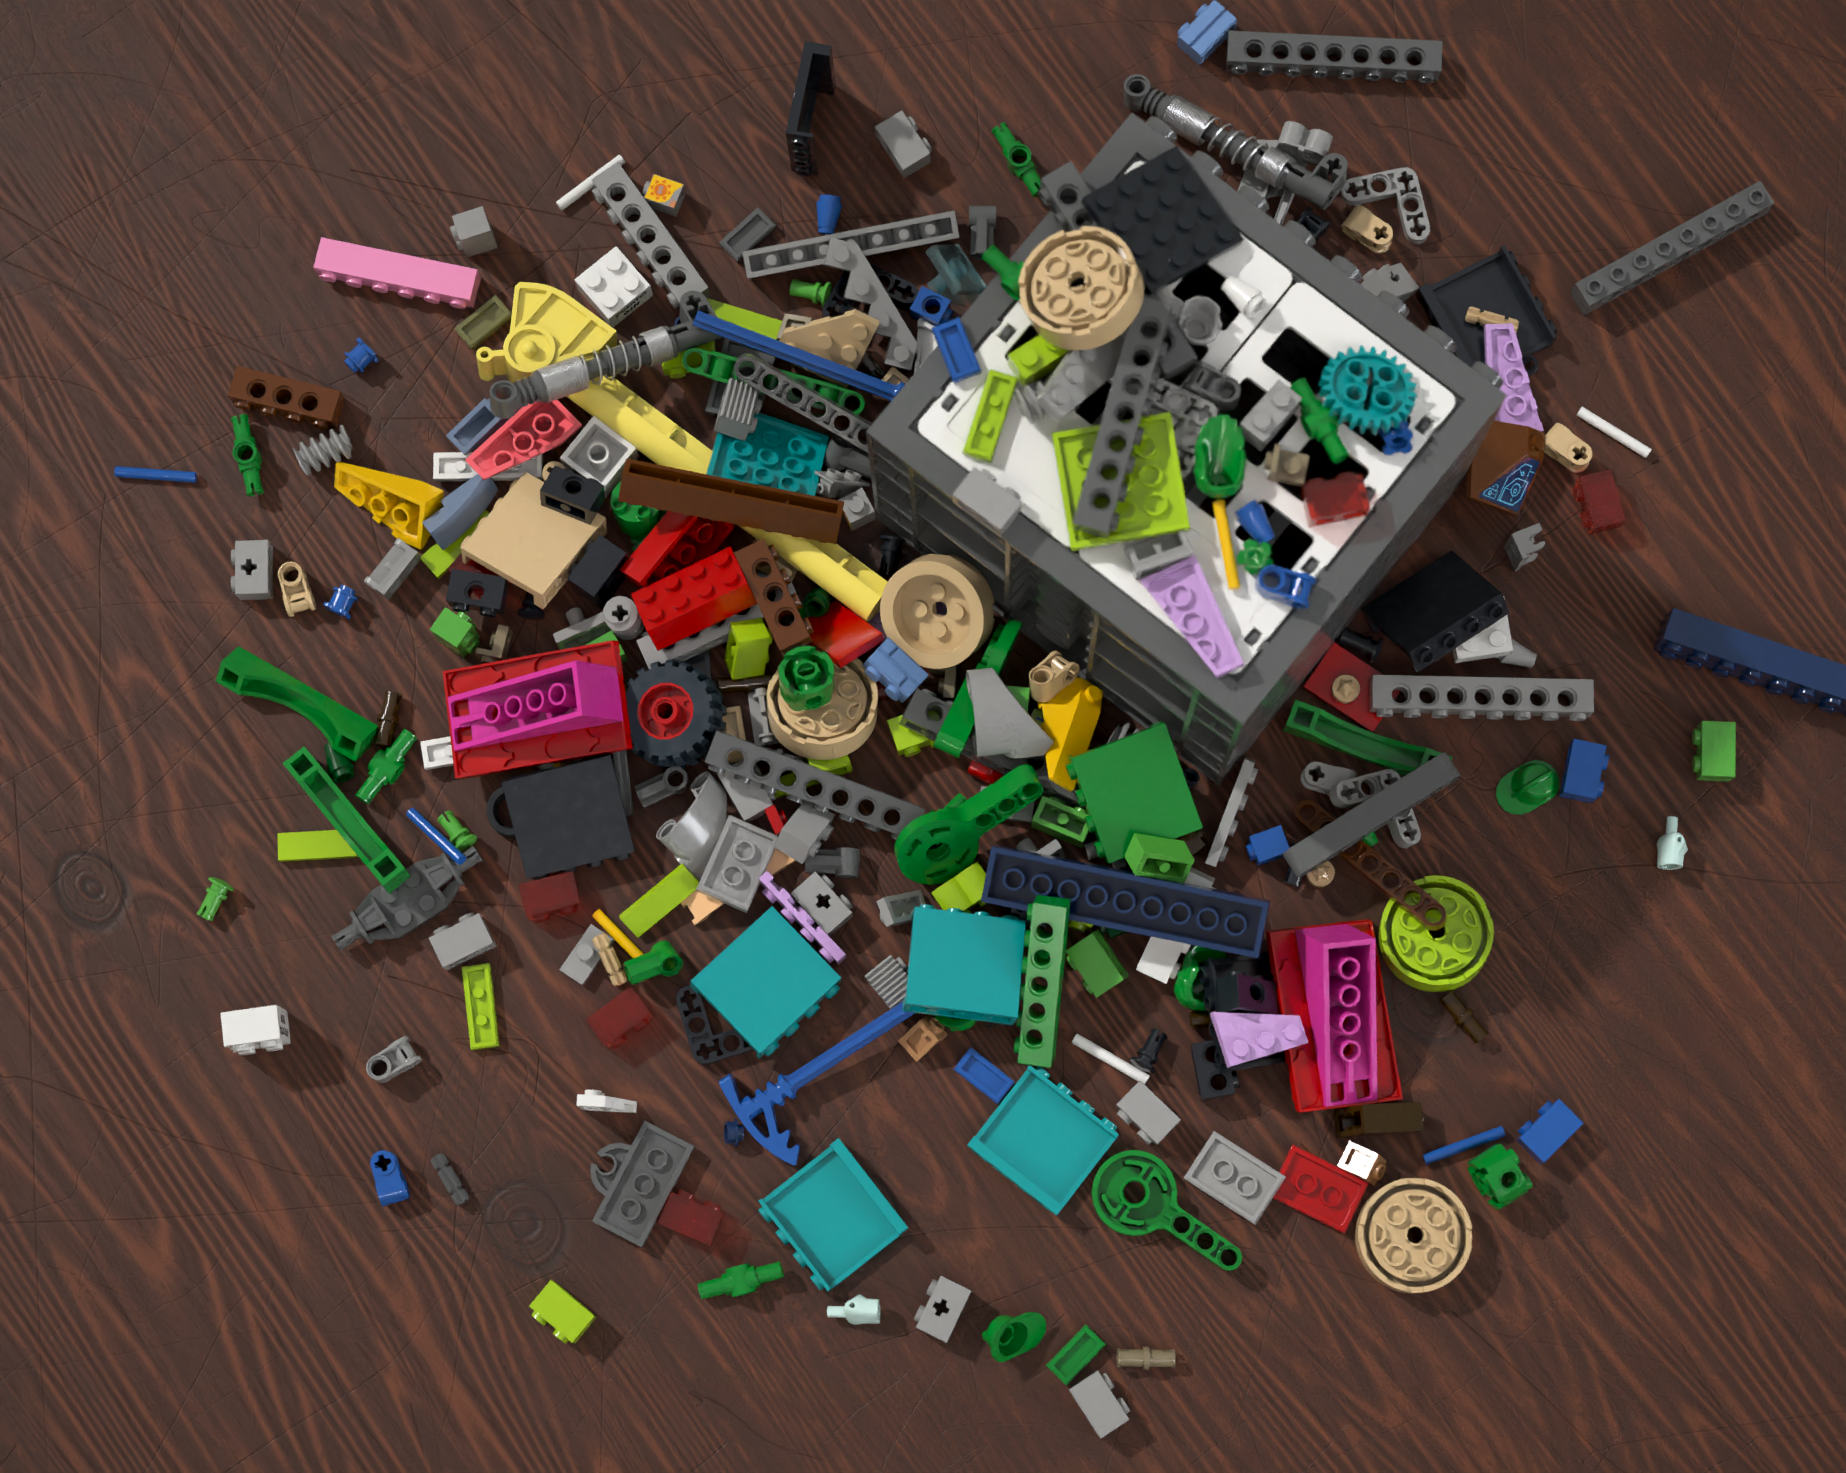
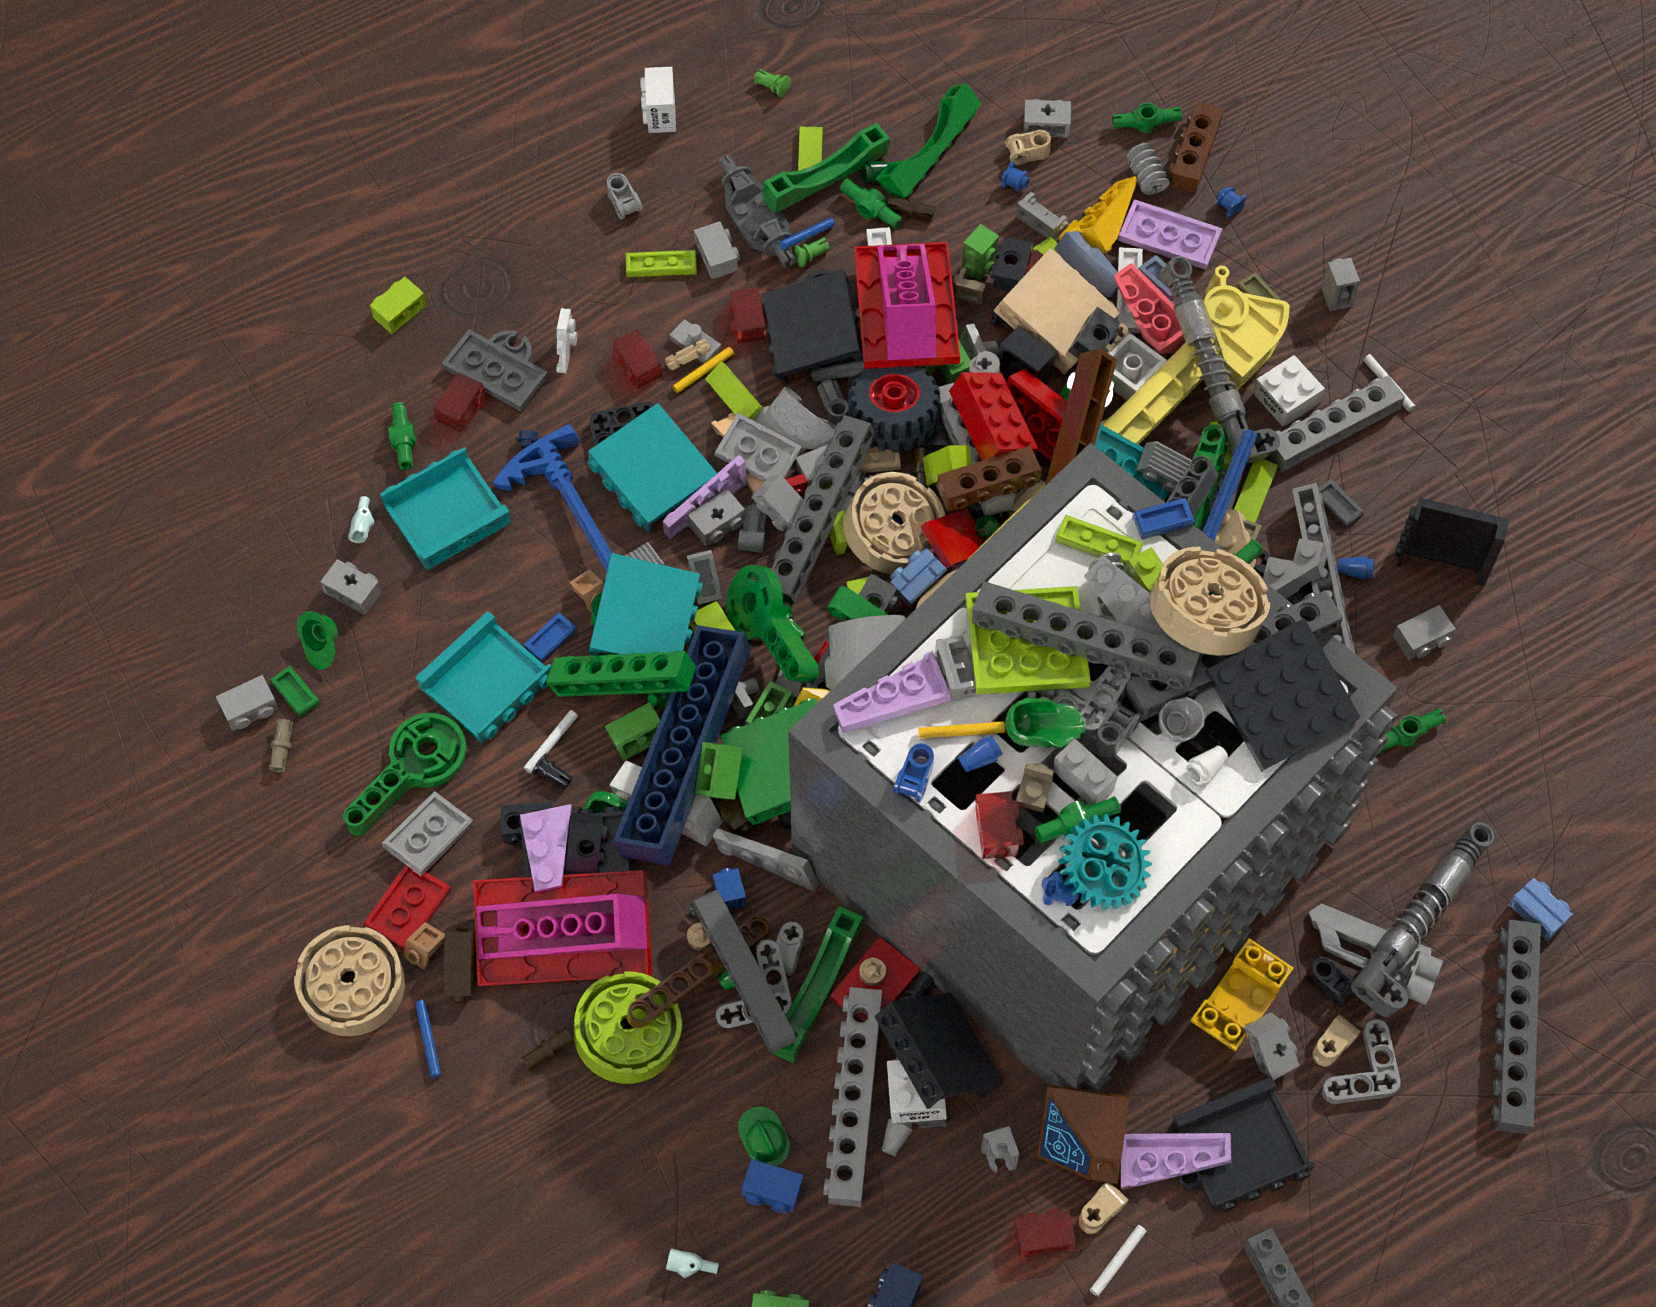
camera: 90 degrees right, 15 degrees down
(155, 474) = (1134, 57): blue bar -> none
(390, 1183) = (526, 190): blue piece -> none
(397, 273) = (1305, 232): bright pink brick -> none
(409, 423) = (1170, 234): none -> lavender plate
(449, 1179) = (520, 234): dark grey axle -> none
(660, 960) = (680, 390): green piece -> none
(664, 194) = (1375, 436): brick -> none
(806, 678) = (912, 498): green brick -> none
(814, 292) = (1283, 545): bright green pin -> none
(987, 500) = (1015, 529): light grey brick -> none
(1147, 1114) = (496, 764): light grey brick -> none
(1255, 556) = (947, 751): green plant -> none
(1474, 315) = (1238, 1149): tan axle -> none
(1498, 1176) = (390, 1057): green brick -> none
(1548, 1130) = (428, 1114): blue brick -> none

